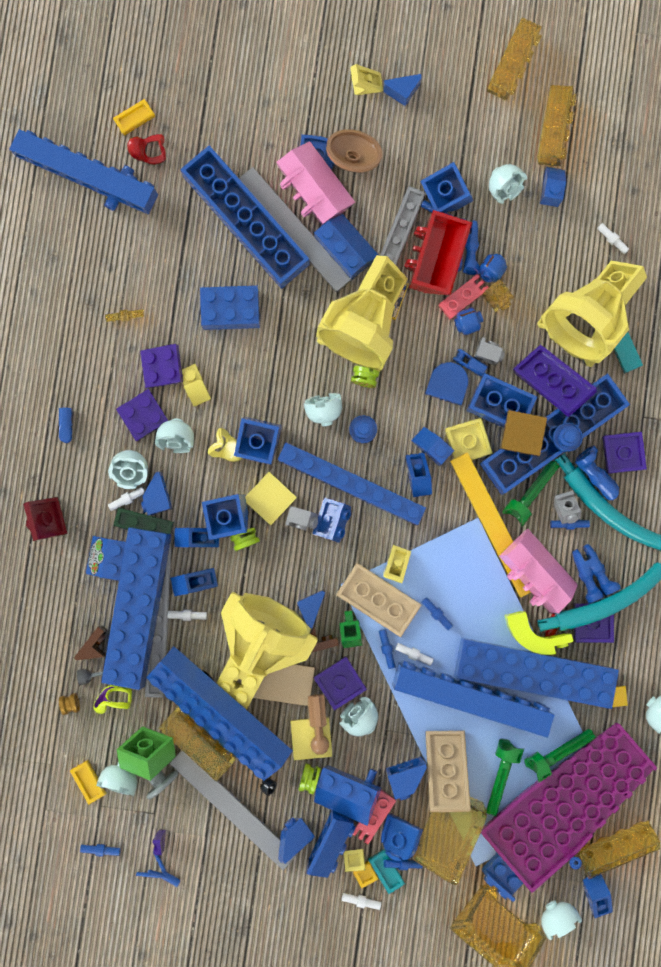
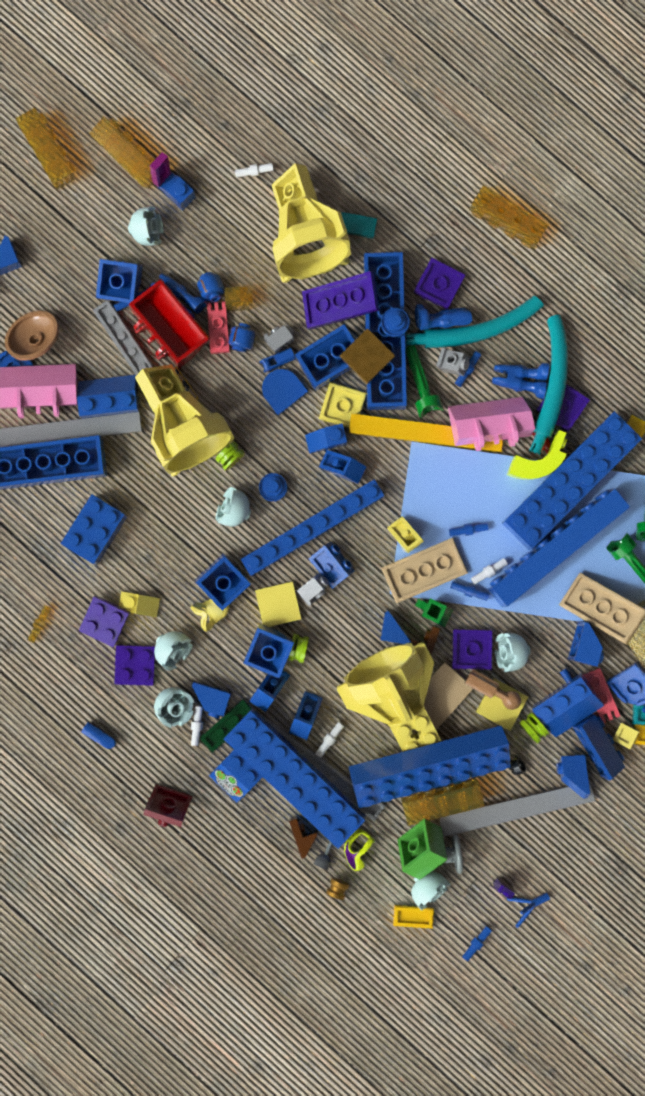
camera: 50 degrees left, 0 degrees up
(561, 160) = (160, 169): none -> magenta tile

